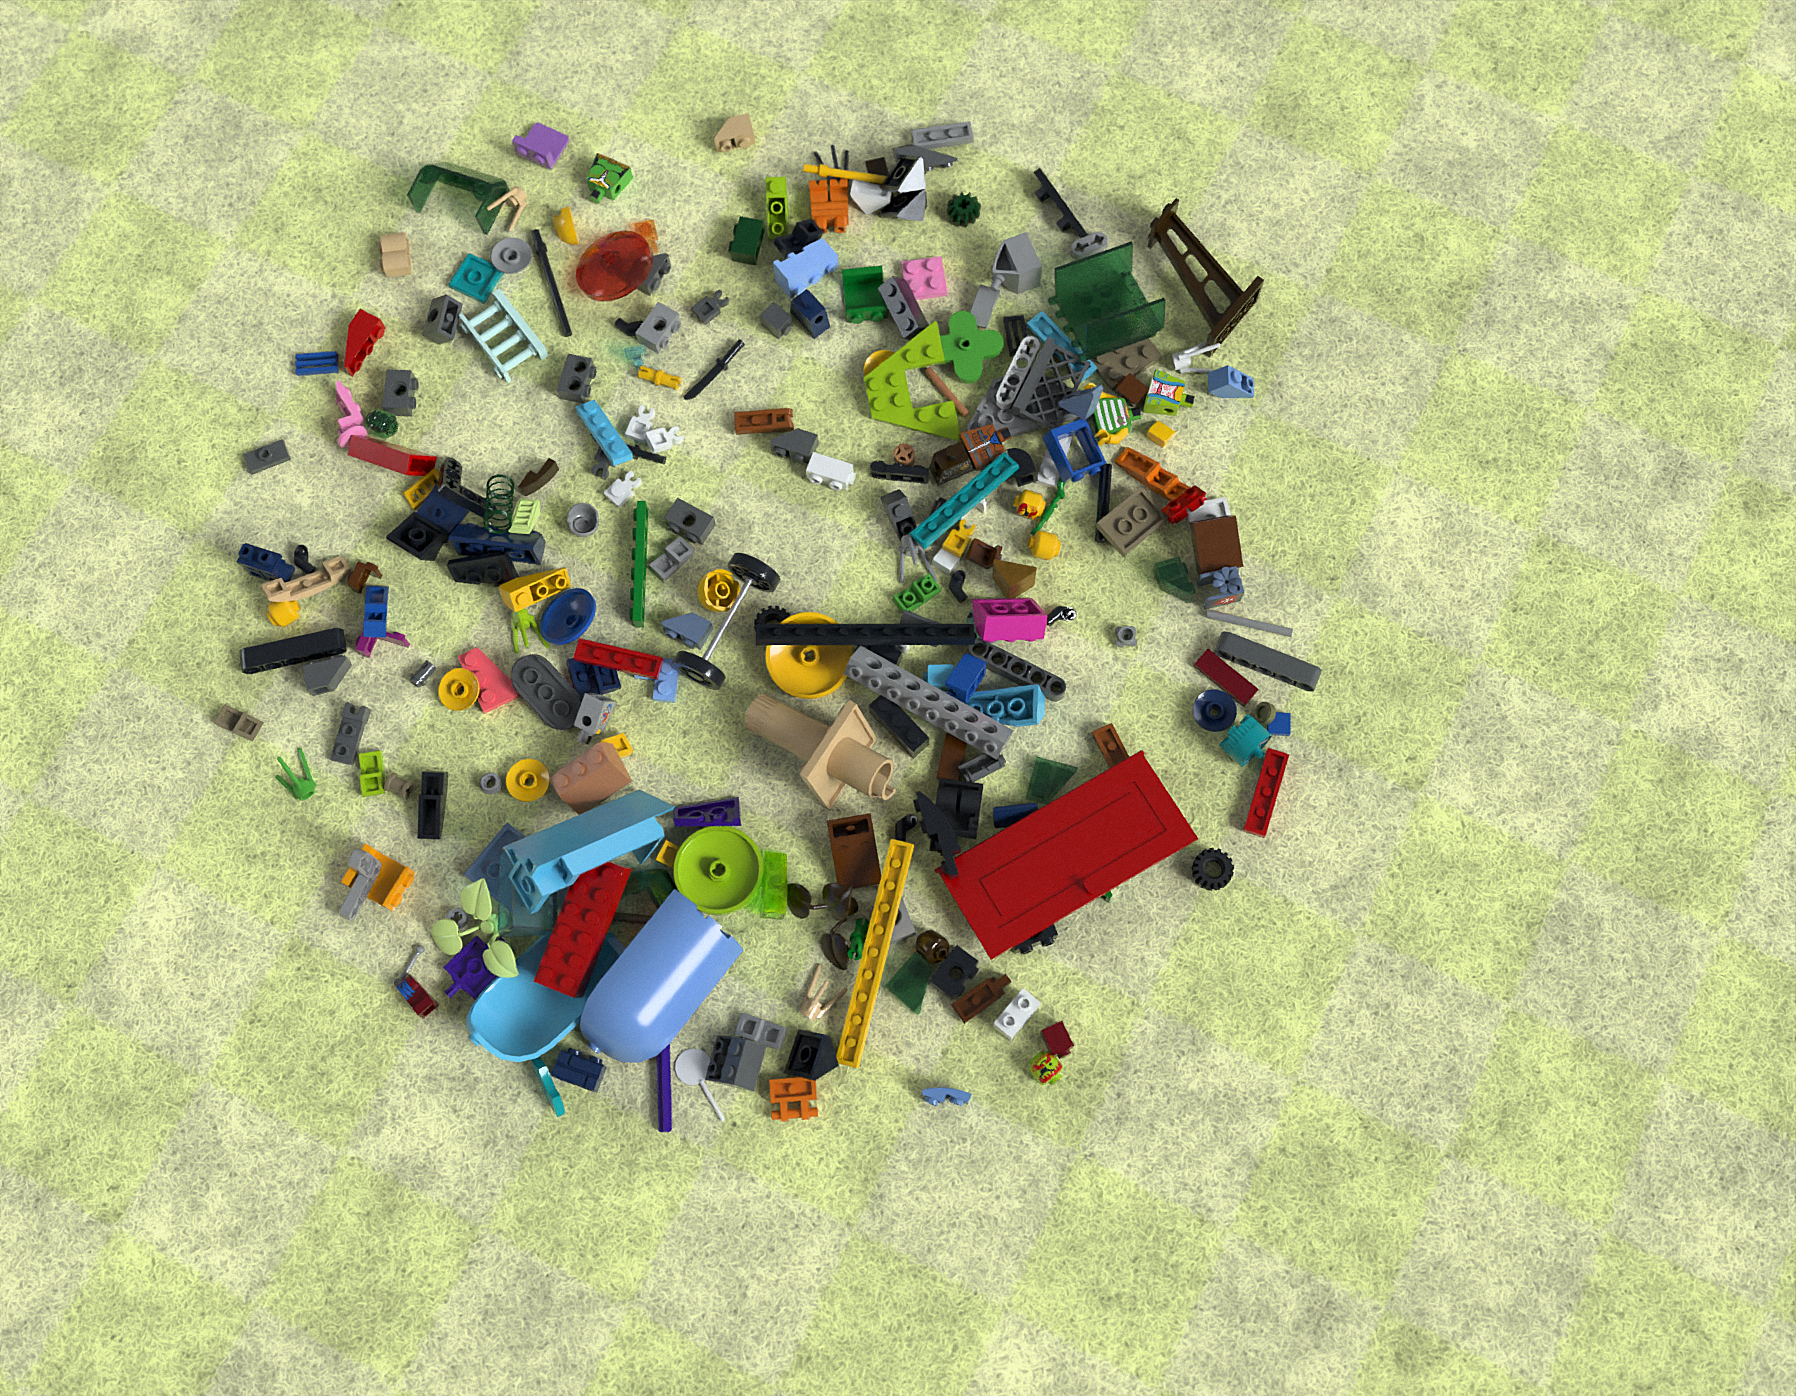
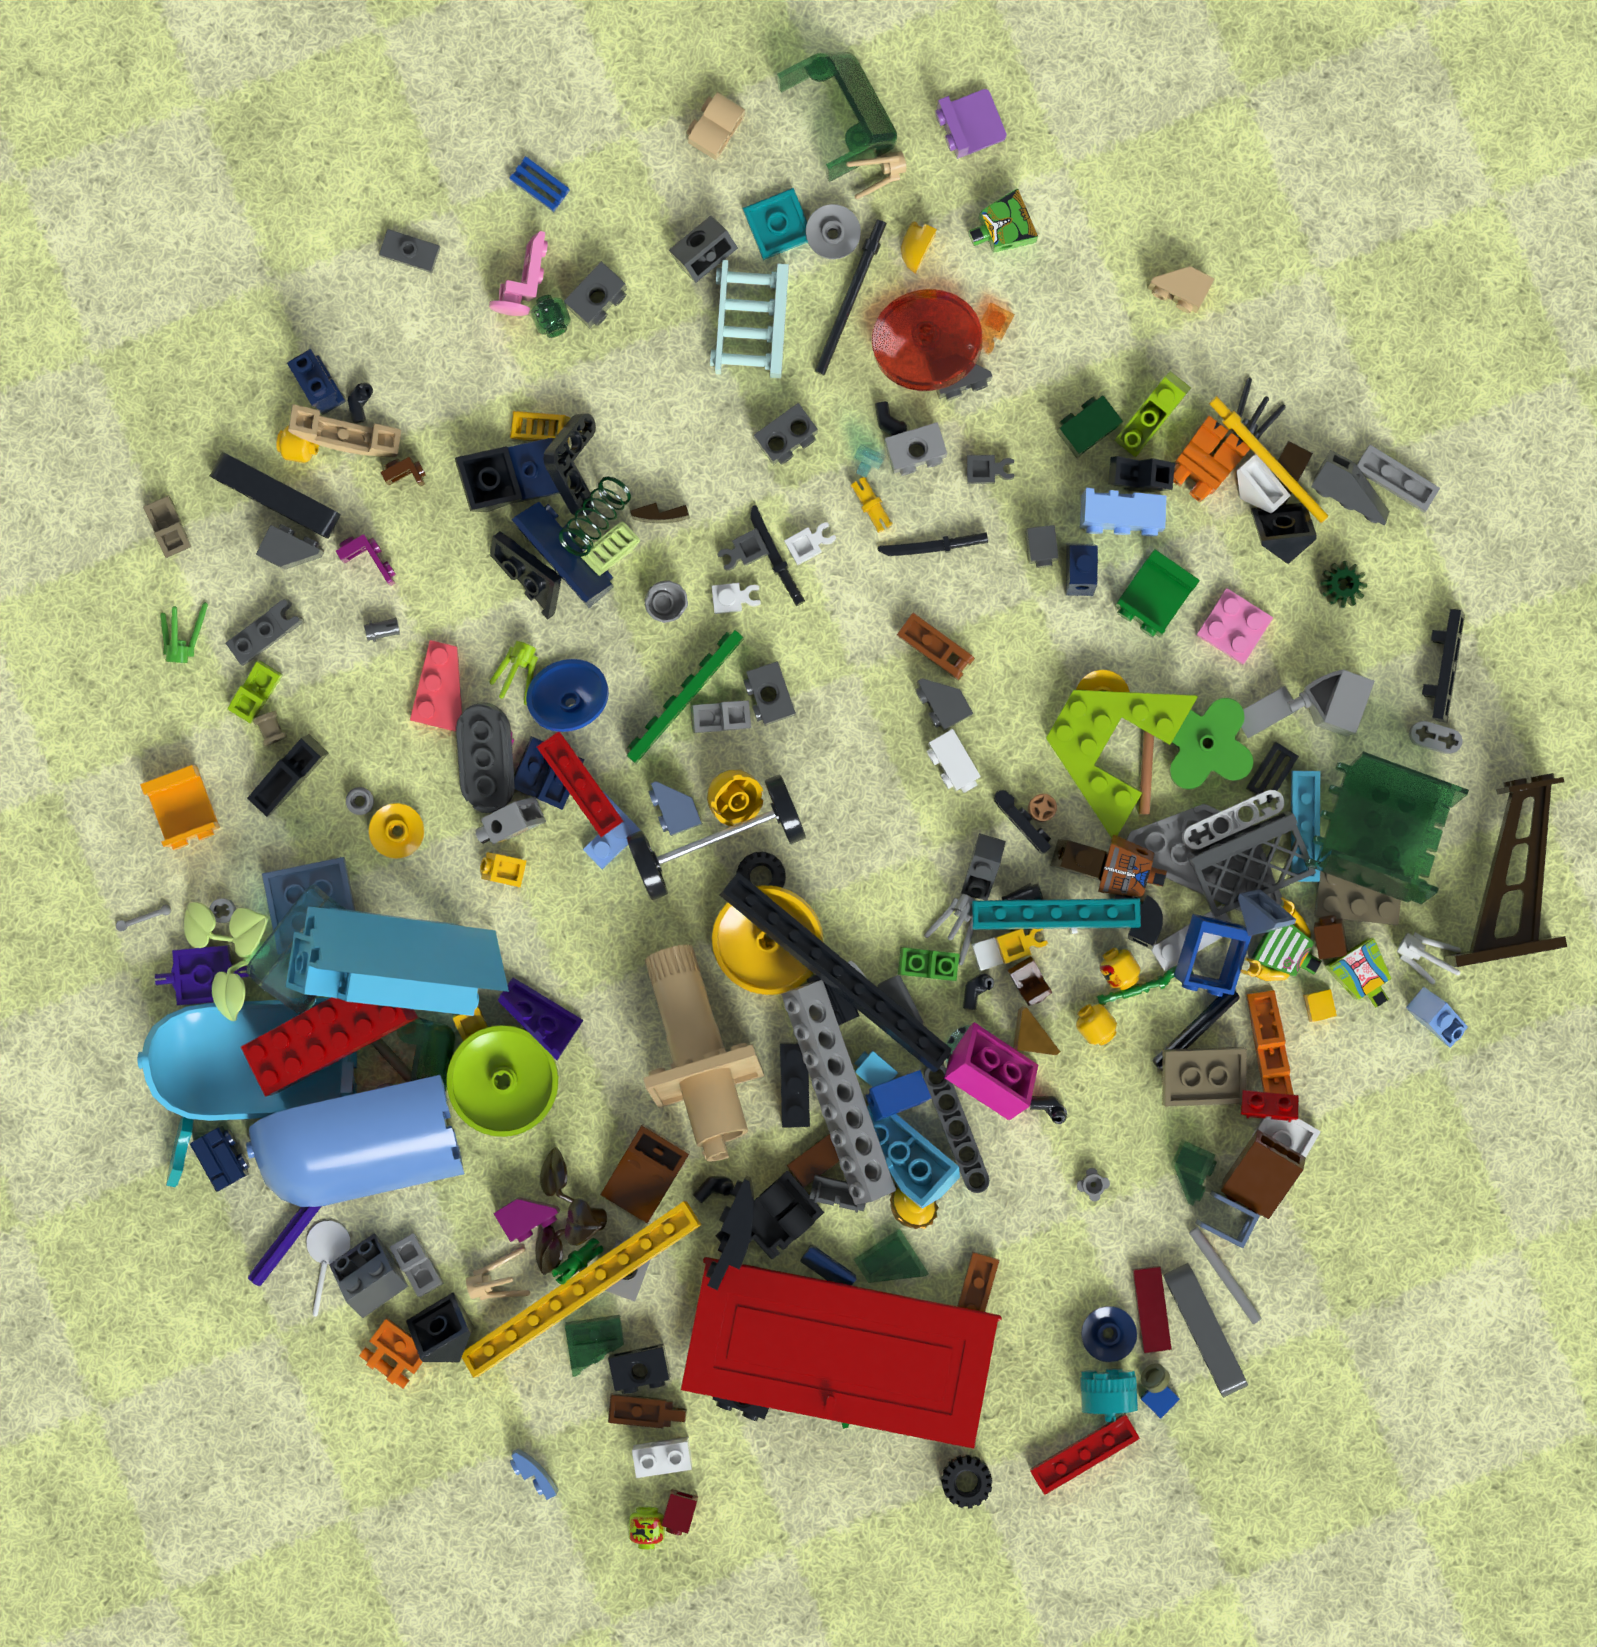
camera: 35 degrees right, 15 degrees up
(362, 335) = (608, 194): red slope -> none
(368, 870) = (166, 797): light grey beam -> none
(376, 611) = (386, 526): blue slope -> none
(391, 456) = (530, 365): red slope -> none
(417, 996) = (127, 955): dark red leg -> none
(452, 684) = (392, 675): yellow dish -> none
(533, 588) = (554, 632): yellow slope -> none
(591, 778) = (456, 886): nougat slope -> none
(604, 432) = (763, 522): medium azure plate -> none
(660, 440) = (814, 579): white plate -> none
(774, 886) = (543, 1140): clear neon green slope -> none
(802, 941) = (523, 1215): none -> magenta slope
(903, 307) = (1181, 648): black brick -> none
(906, 175) = (1308, 504): black slope -> none
(932, 946) = (639, 1326): dark brown head -> none
(1032, 736) = (909, 1213): none -> yellow piece
(1226, 581) = (1242, 1223): sand blue plant -> none

